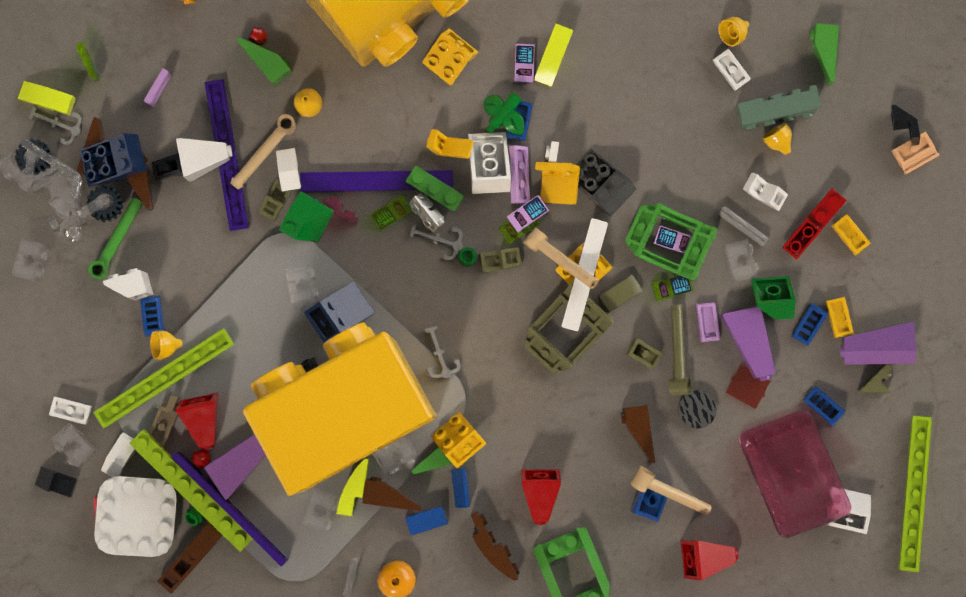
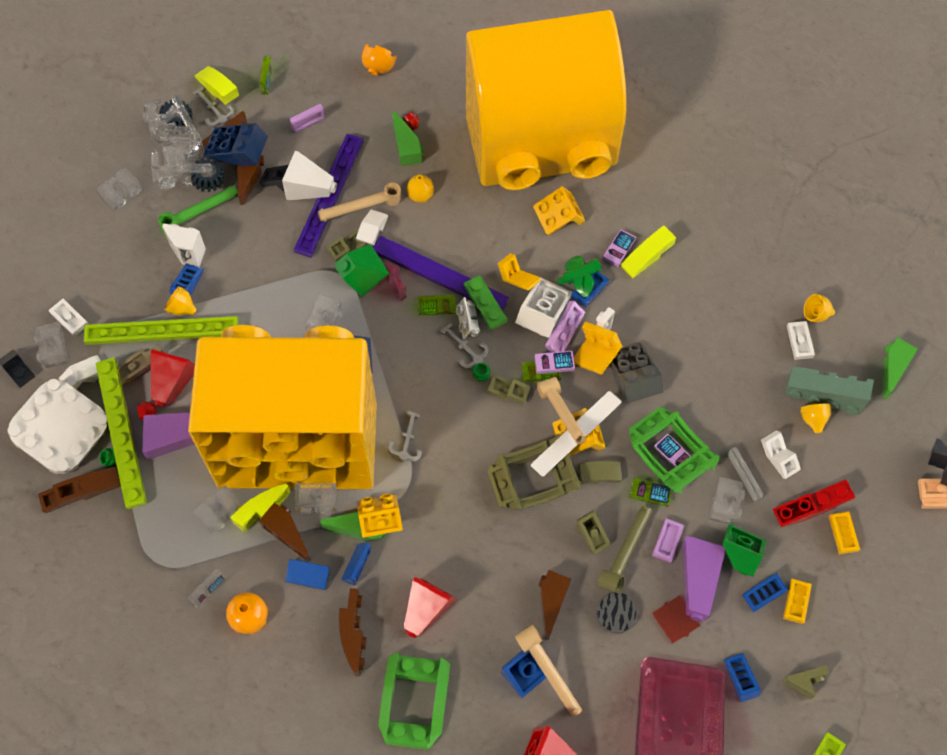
camera: 25 degrees right, 20 degrees down
(230, 508) = (142, 466): dark purple tile -> none
(881, 346) = (826, 647): medium lavender slope -> none

